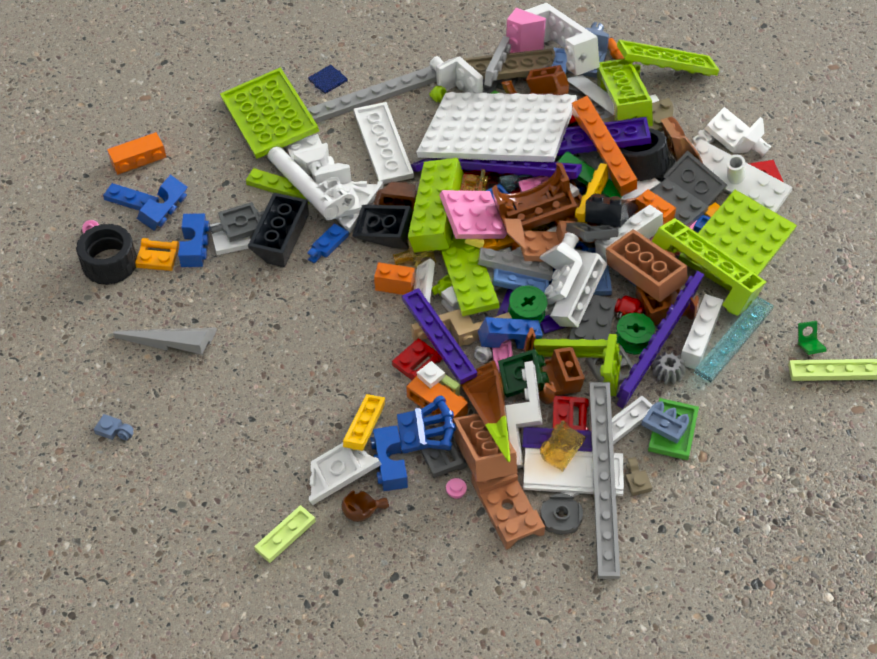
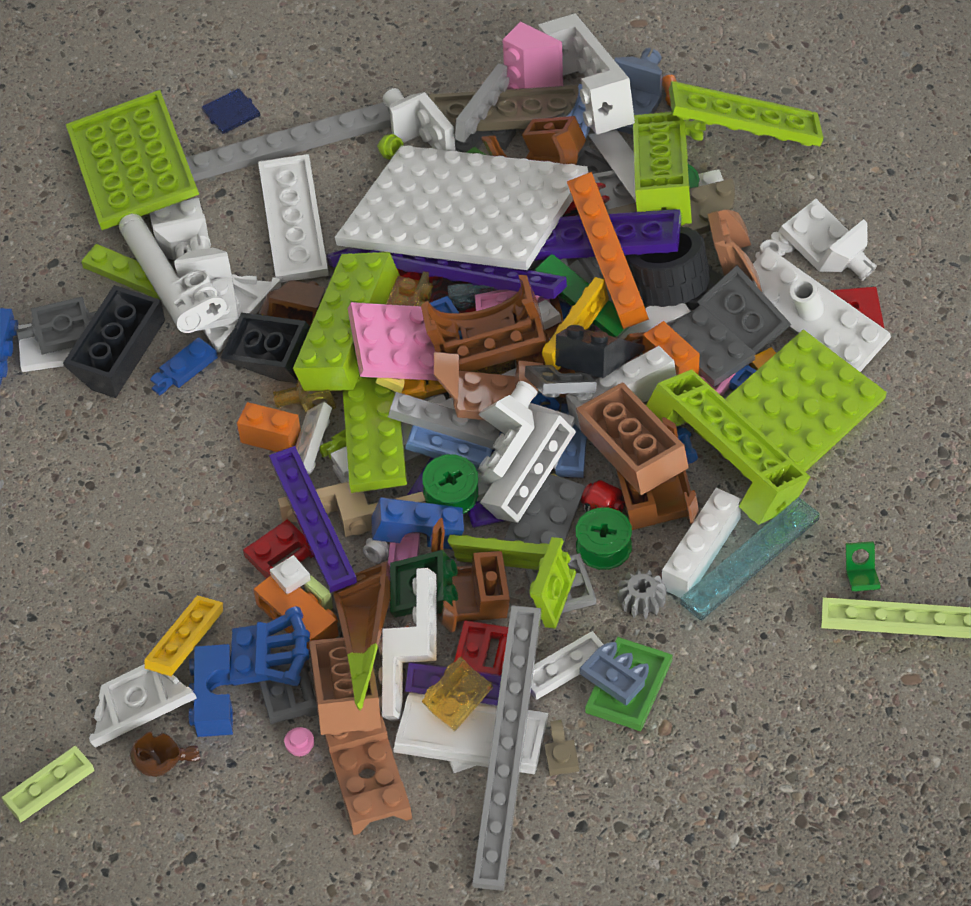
camera: 10 degrees right, 0 degrees up
(565, 524) = (440, 807): dark grey plate -> none
(657, 340) = (627, 554): dark purple plate -> none

